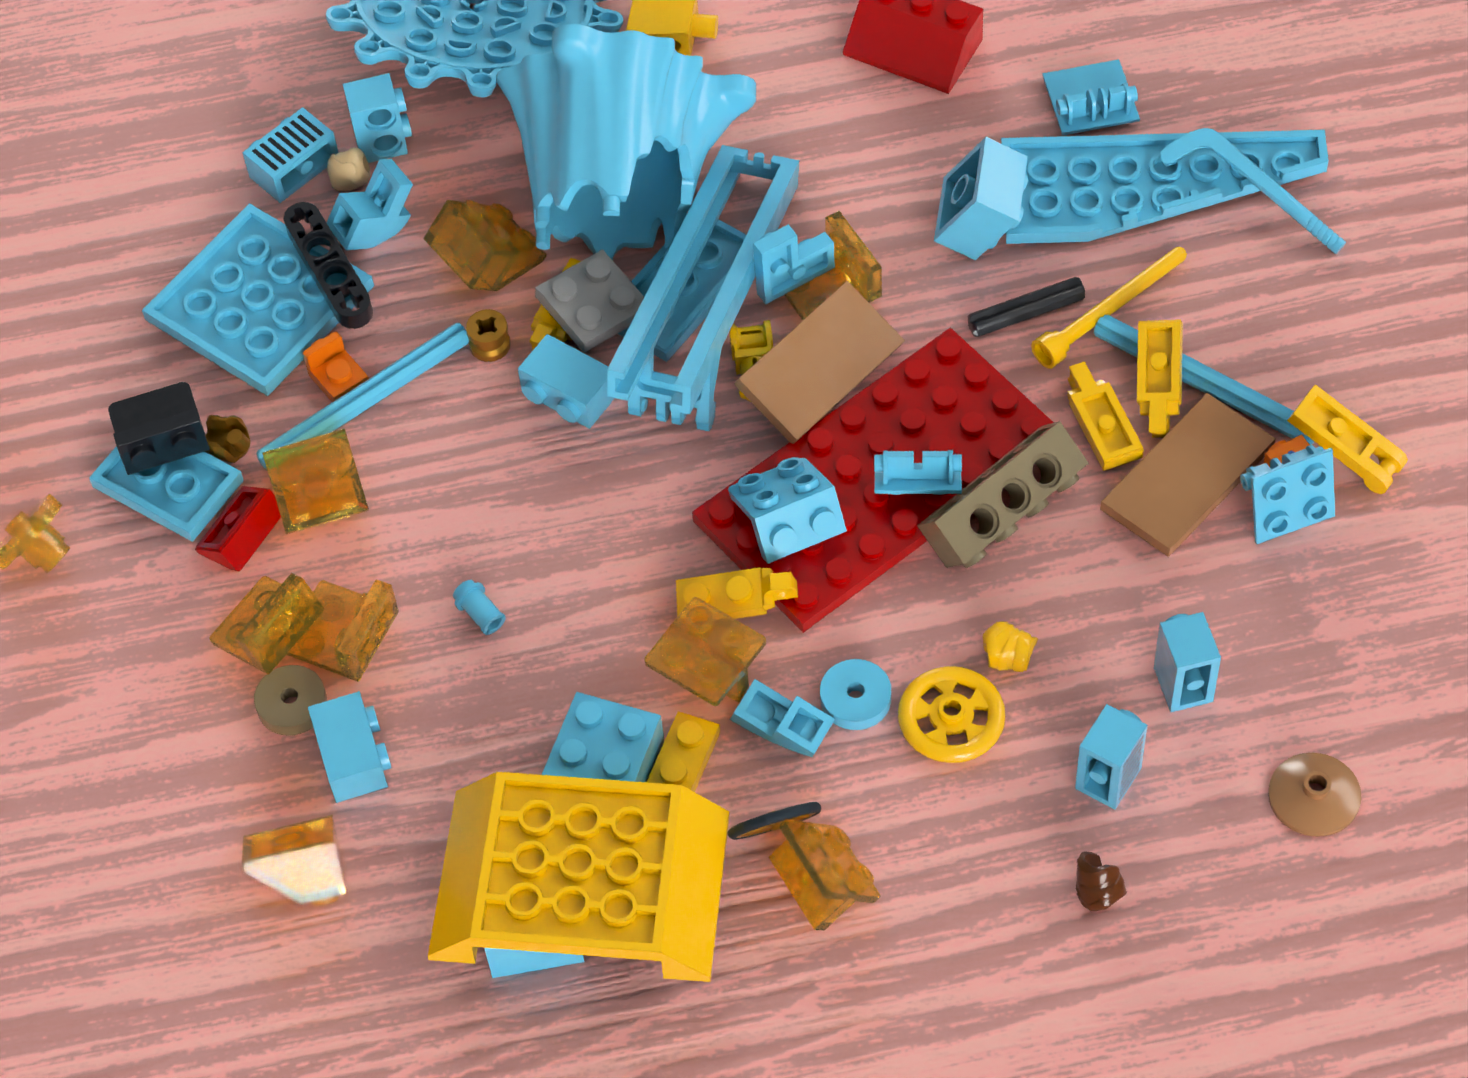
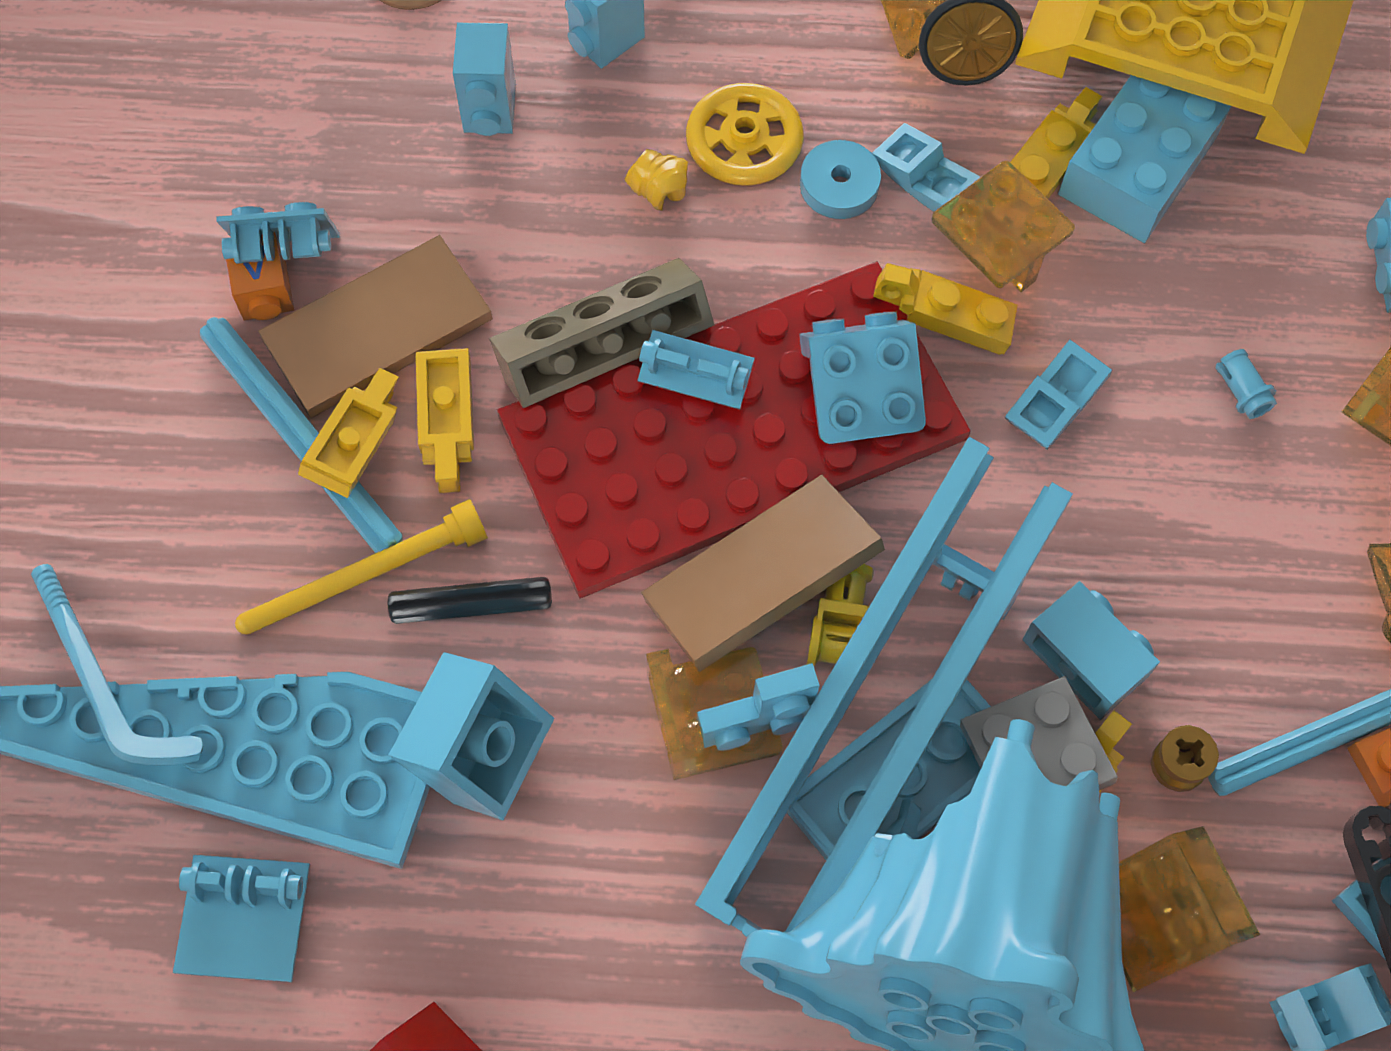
camera: 170 degrees left, 10 degrees up
(629, 563) = (1058, 394): none -> medium azure slope
(1349, 437) = (183, 292): yellow plate -> none

